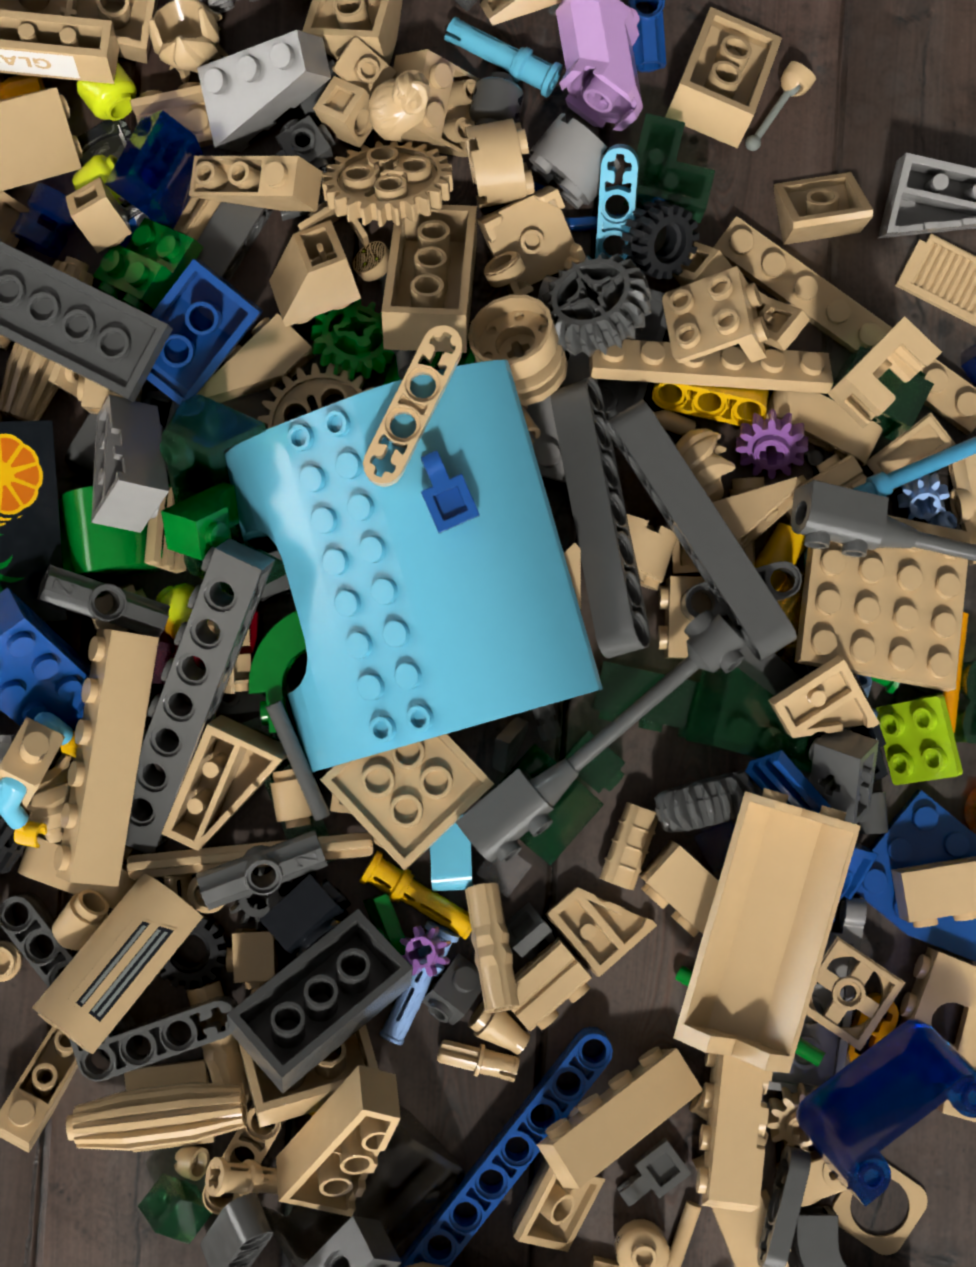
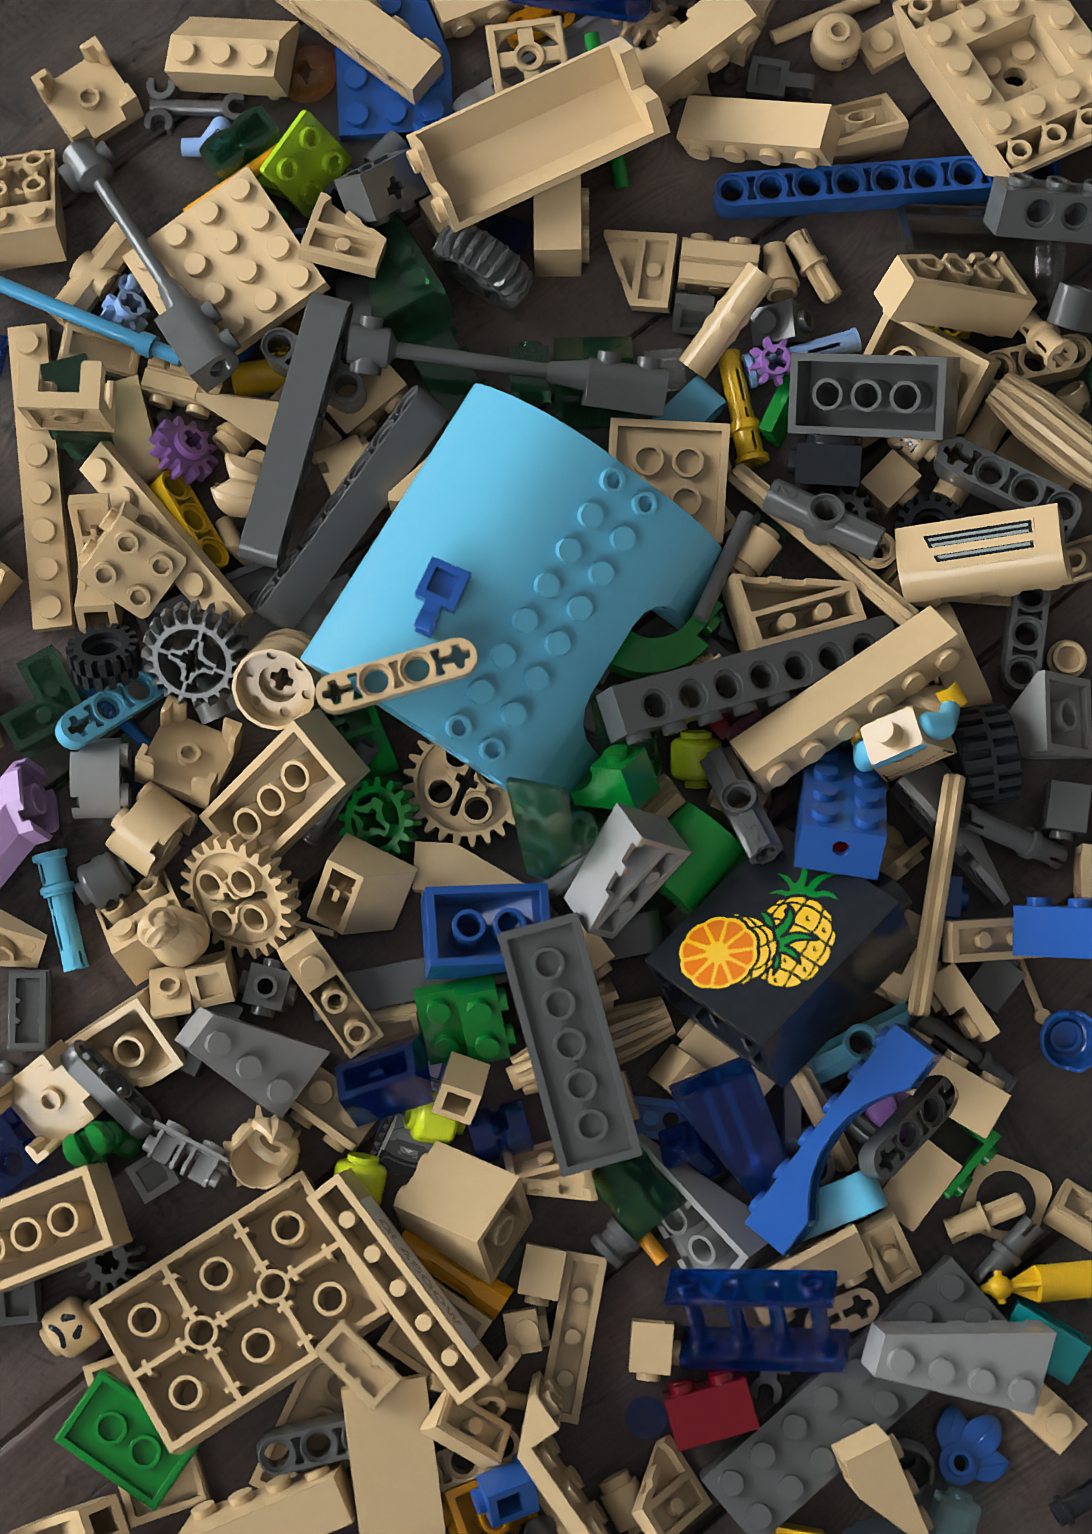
camera: 120 degrees left, 5 degrees down
(80, 919) = (981, 619): tan brick -> none
(372, 261) = (307, 861): tile -> none
(504, 269) = (228, 751): tan tile -> none
(629, 846) = (566, 296): tan axle -> none
(767, 777) = (430, 228): blue tile -> none

